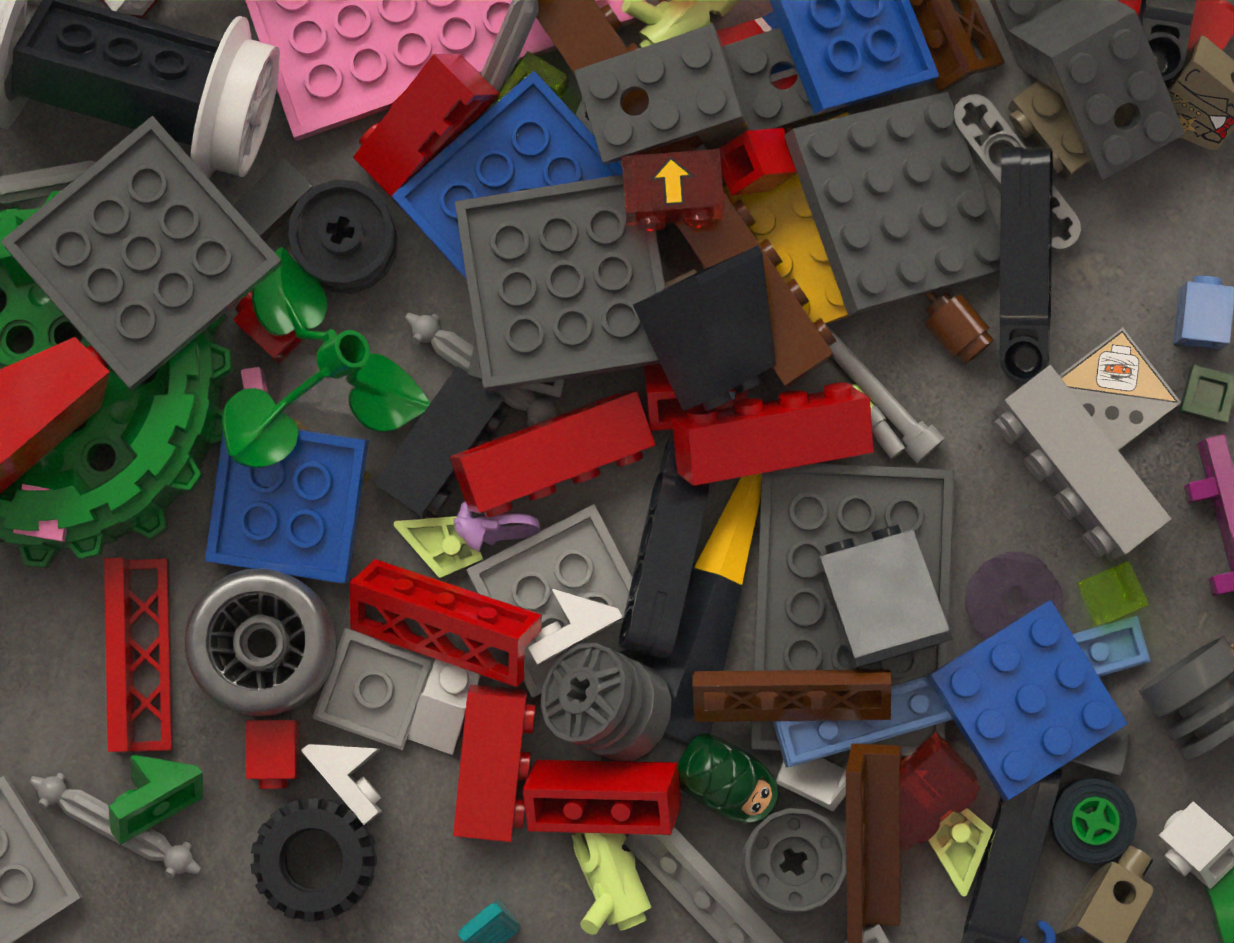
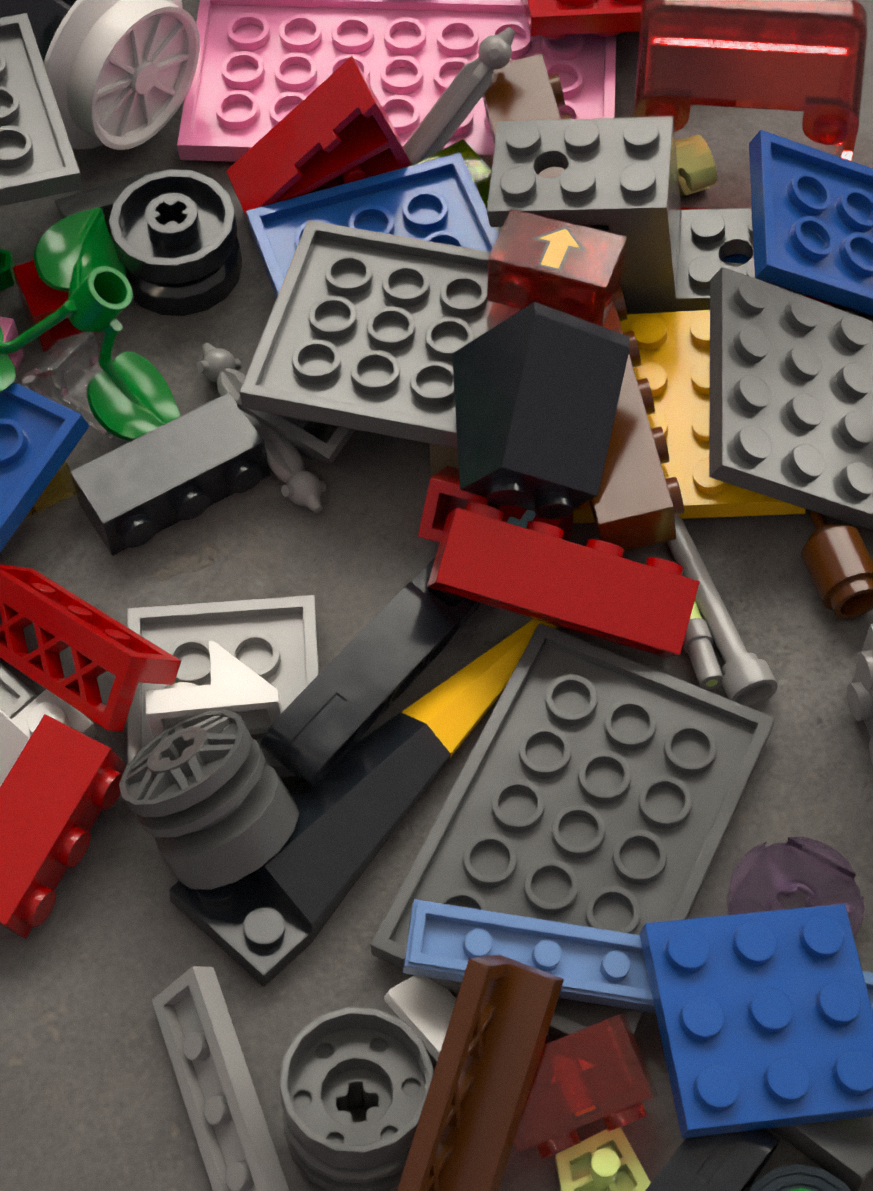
camera: 25 degrees right, 25 degrees down
(438, 544) = (117, 576): yellowish green piece -> none
(488, 530) = (164, 573): lavender piece -> none
(552, 452) = (291, 513): red brick -> none
(602, 797) = (149, 915): red brick -> none
(612, 881) = (114, 1032): yellowish green piece -> none
(728, 780) = (316, 962): dark green piece -> none
(756, 161) = (666, 295): red brick -> none
(792, 695) = (450, 868): reddish brown fence -> none
(882, 597) = (619, 818): slope -> none

